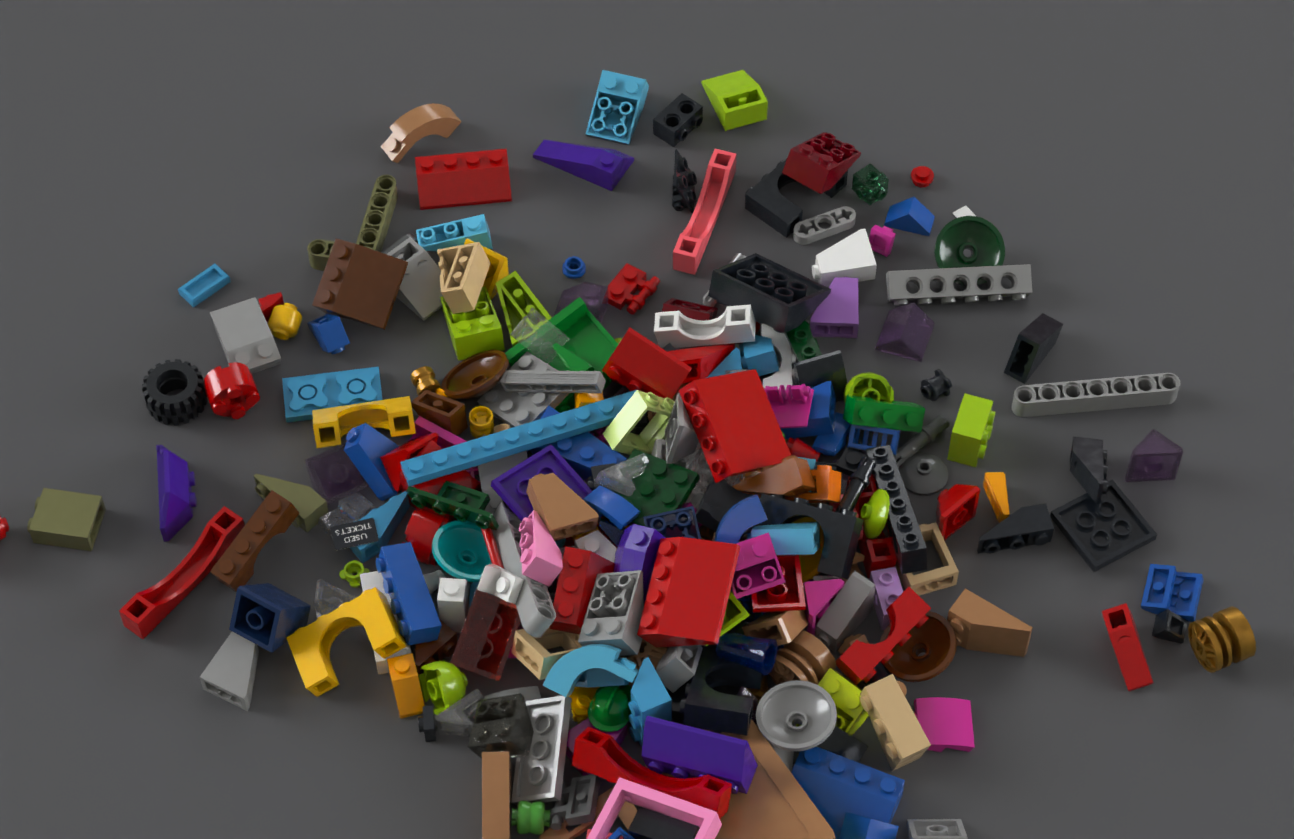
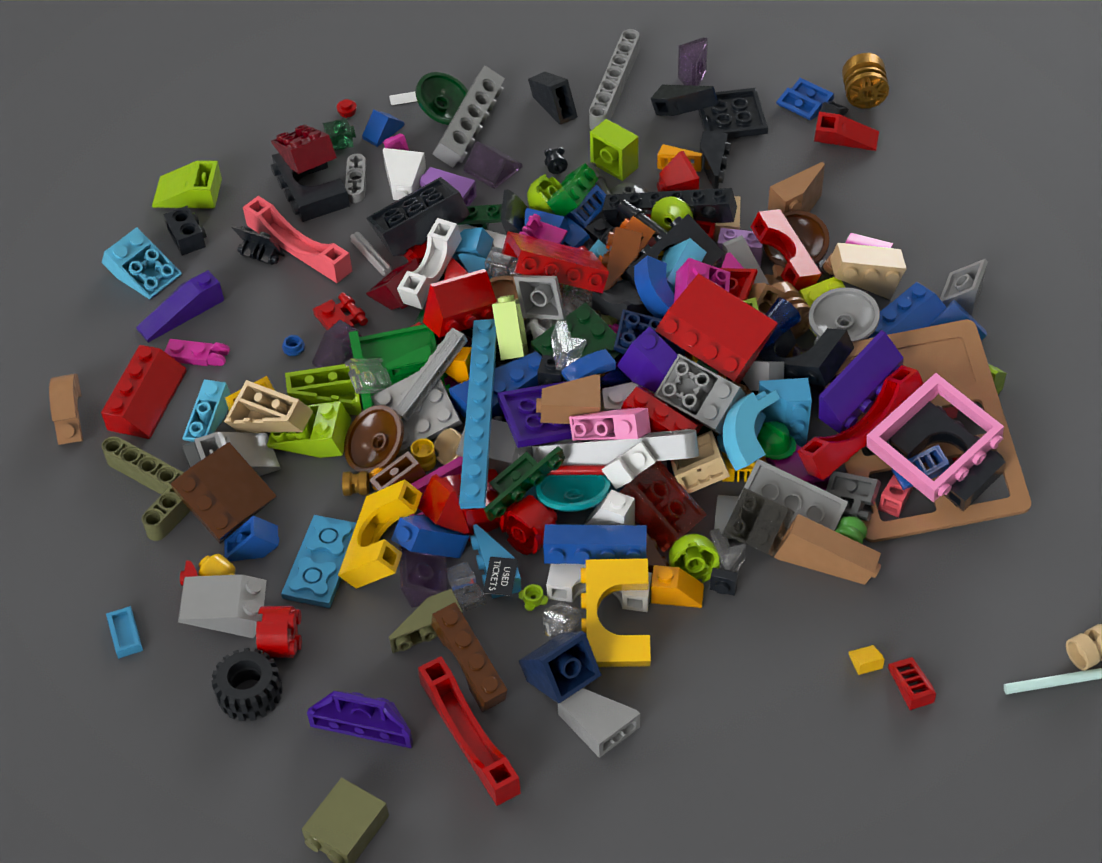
camera: 65 degrees left, 5 degrees down
(532, 195) = (197, 352): none -> dark pink hinge

